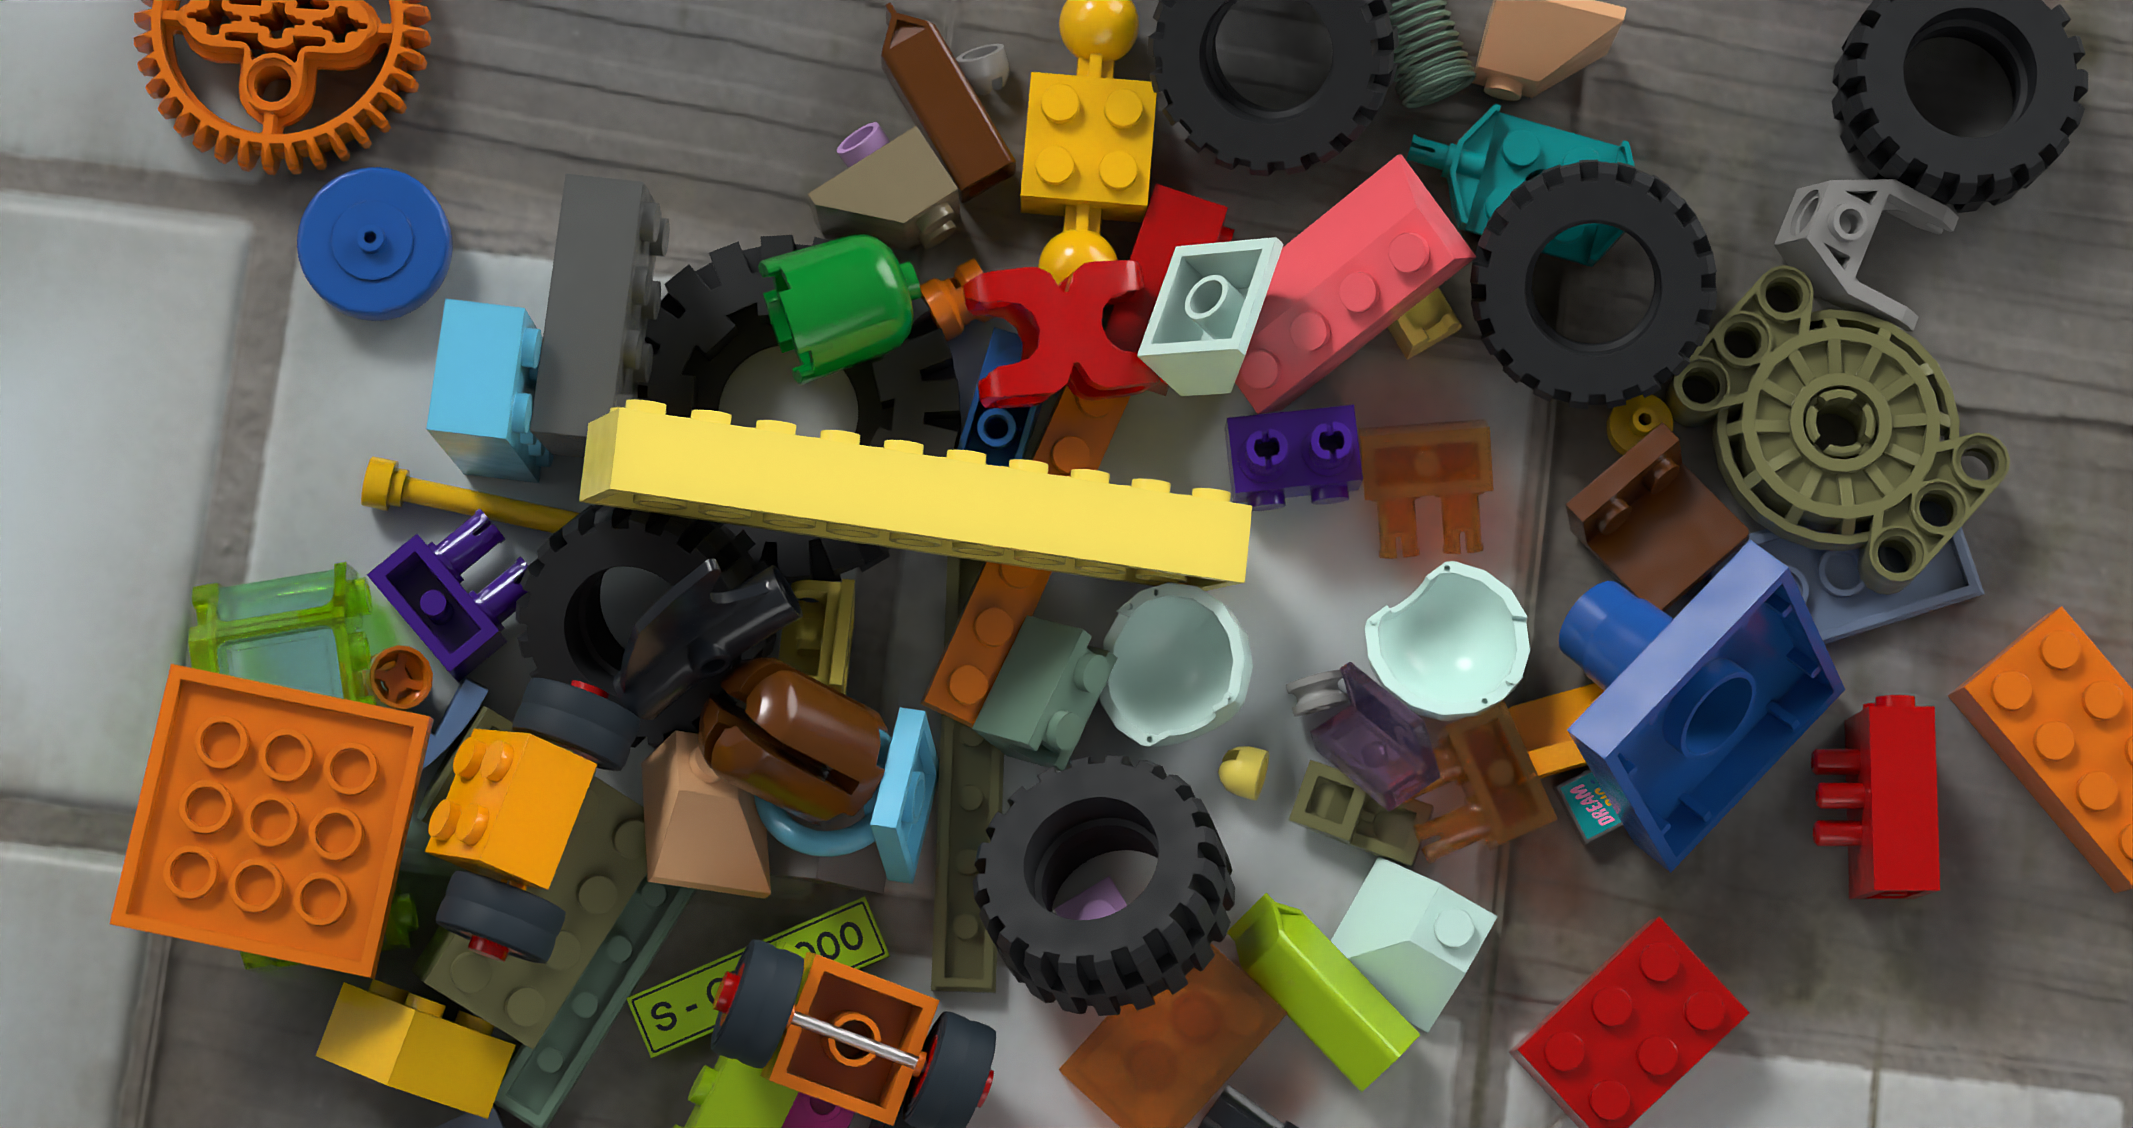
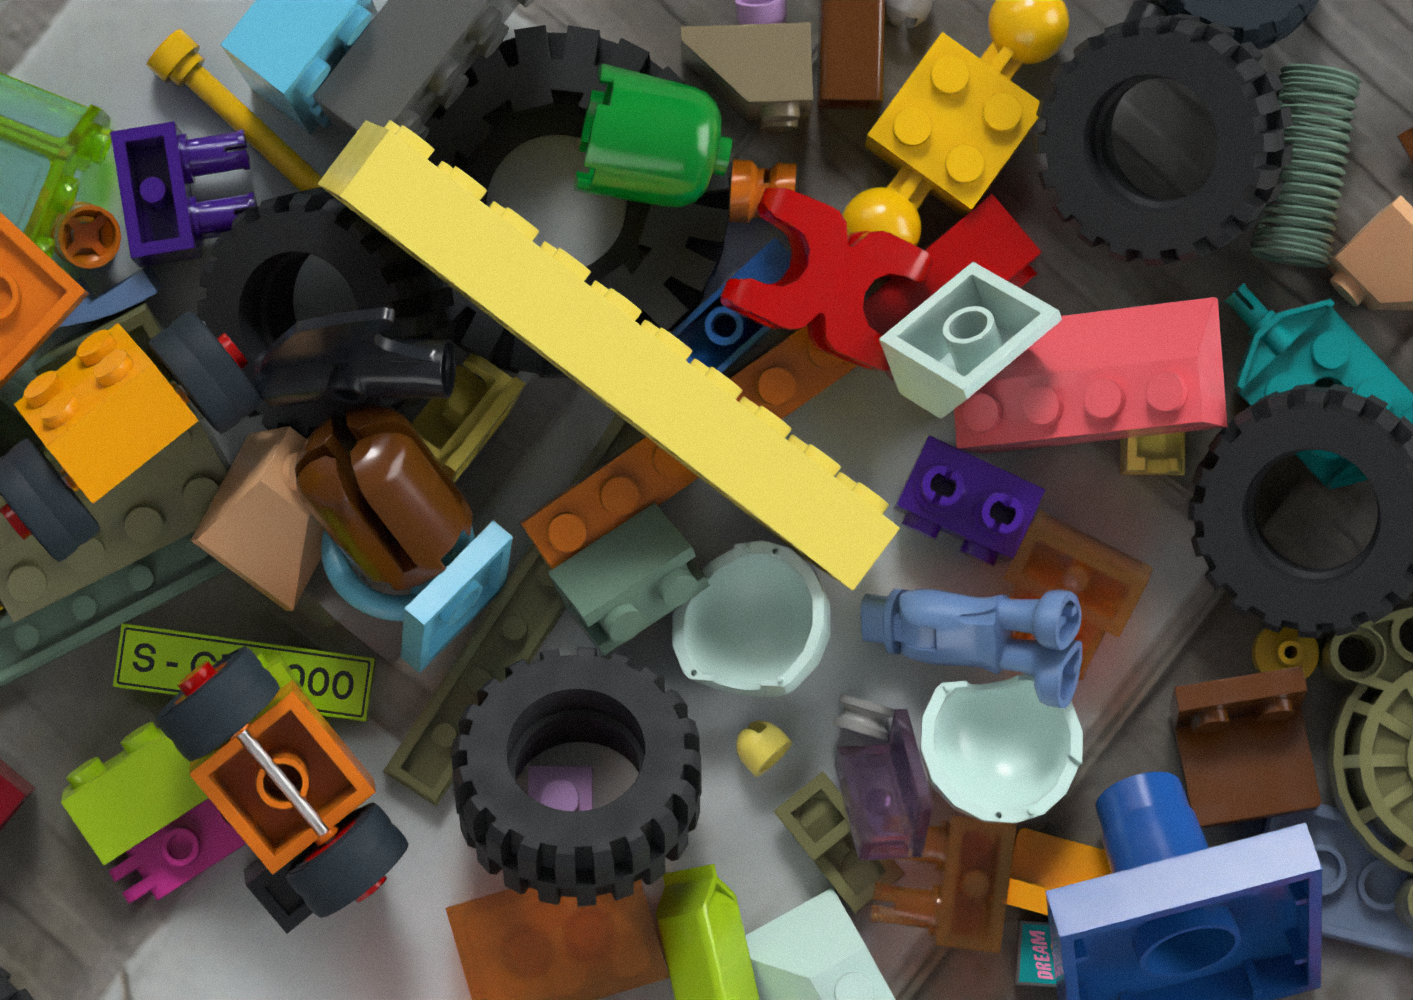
camera: 30 degrees right, 5 degrees up
(1370, 560) = (978, 633): none -> medium blue piece

